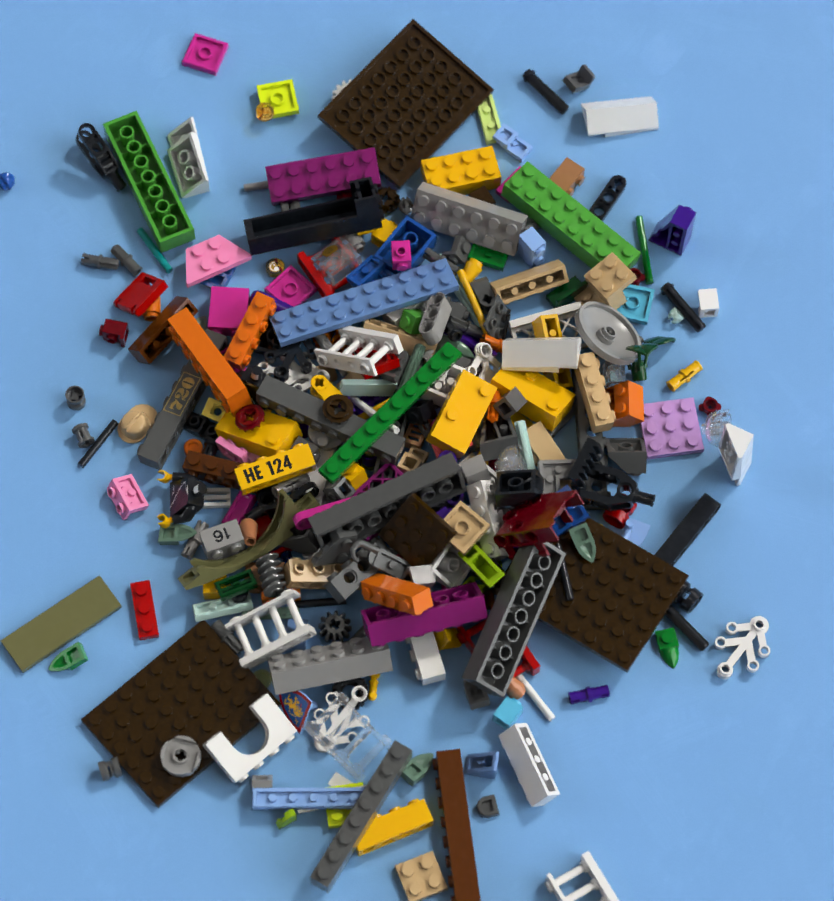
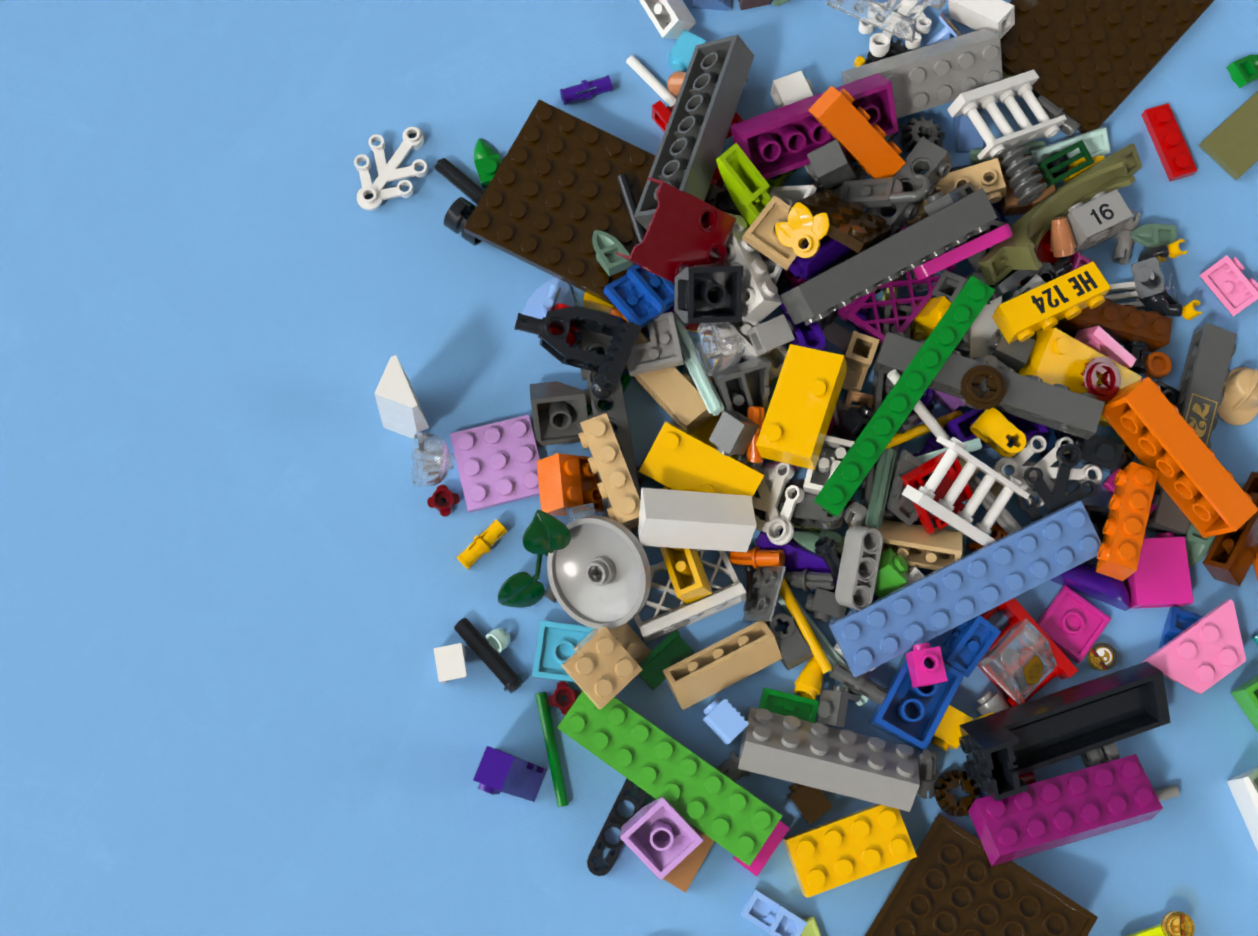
camera: 175 degrees right, 10 degrees up
(449, 515) = (802, 226): none -> yellow plate
(582, 184) = (660, 836): none -> lavender slope
(688, 529) = (470, 309): black beam -> none

